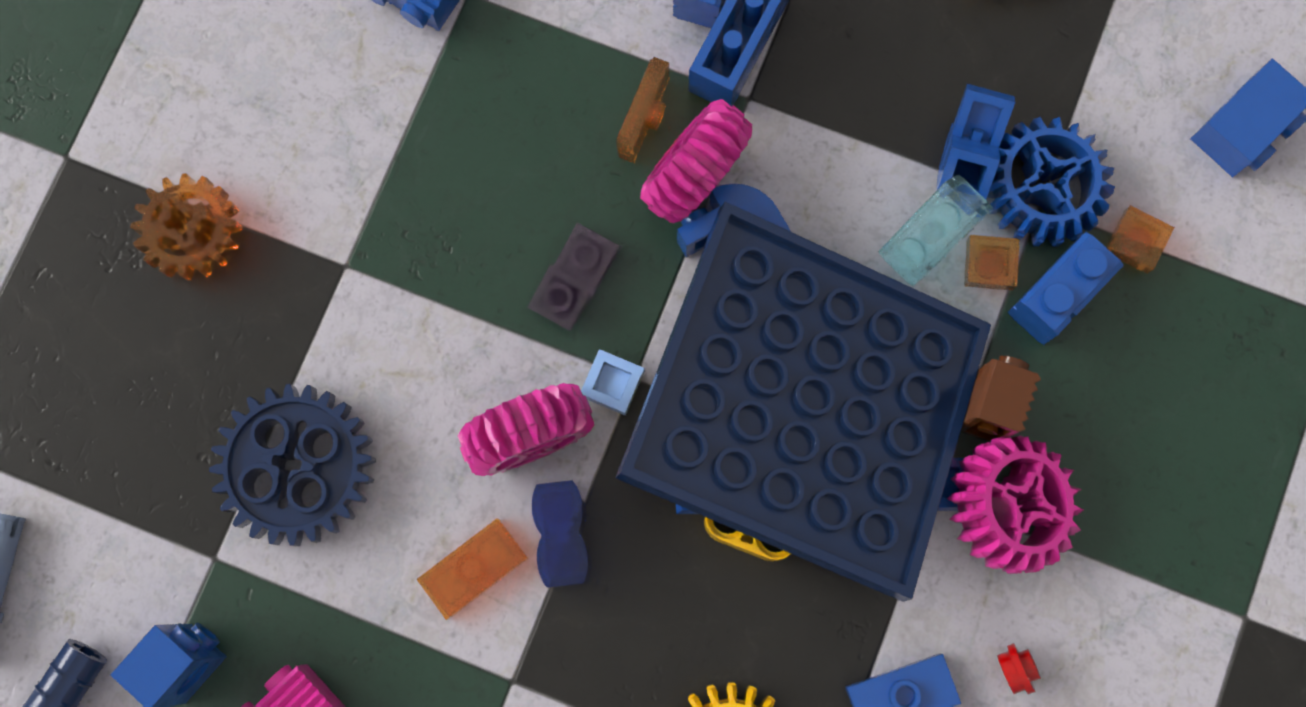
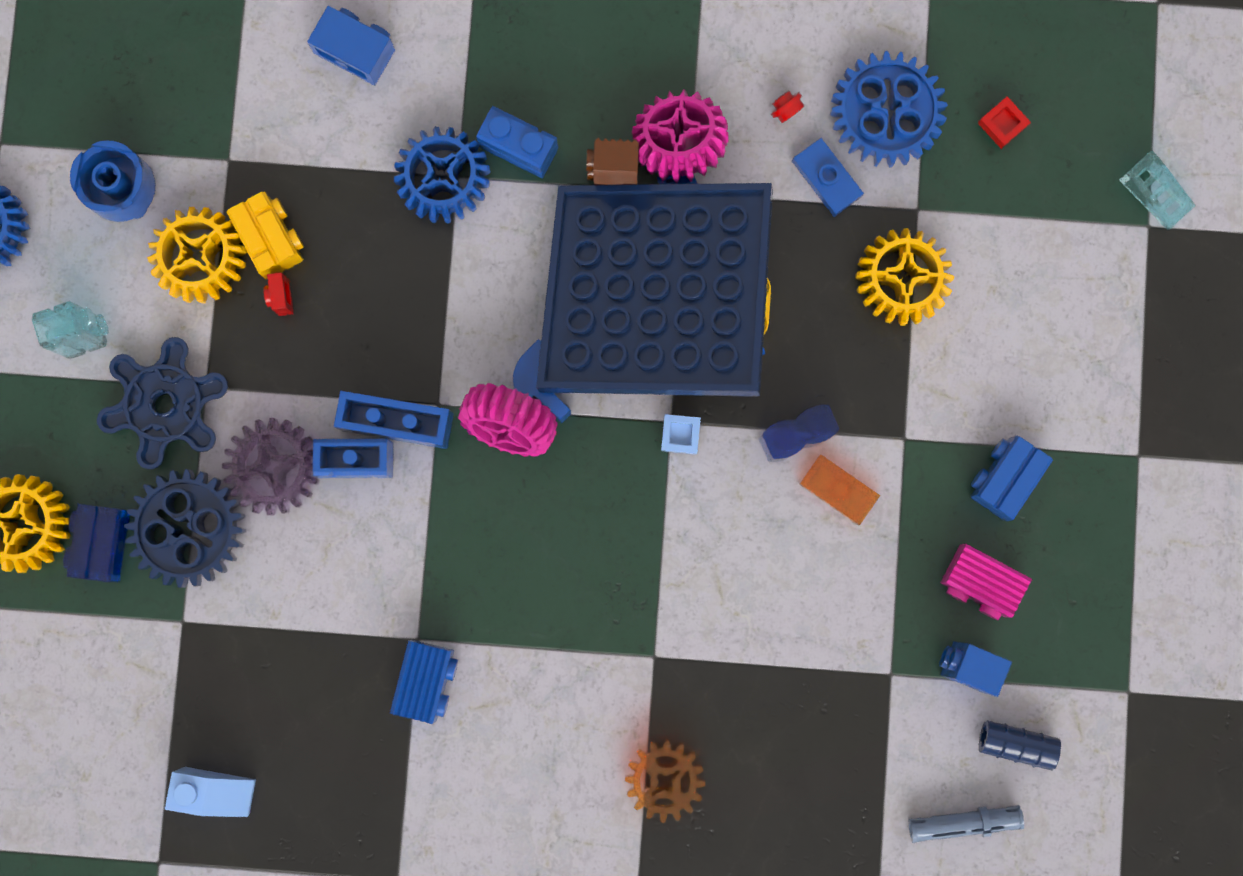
camera: 110 degrees left, 5 degrees up
(248, 457) = (814, 672): dark blue gear -> none
(525, 429) = (737, 478): dark pink gear -> none
(574, 277) = (612, 486): clear purple slope -> none
(645, 110) = (474, 473): clear orange plate -> none
(935, 229) = (506, 239): clear light blue brick -> none
(975, 138) = (435, 234): blue brick -> none
(991, 262) = (512, 197): clear orange plate -> none
(1139, 239) = (464, 101): clear orange plate -> none

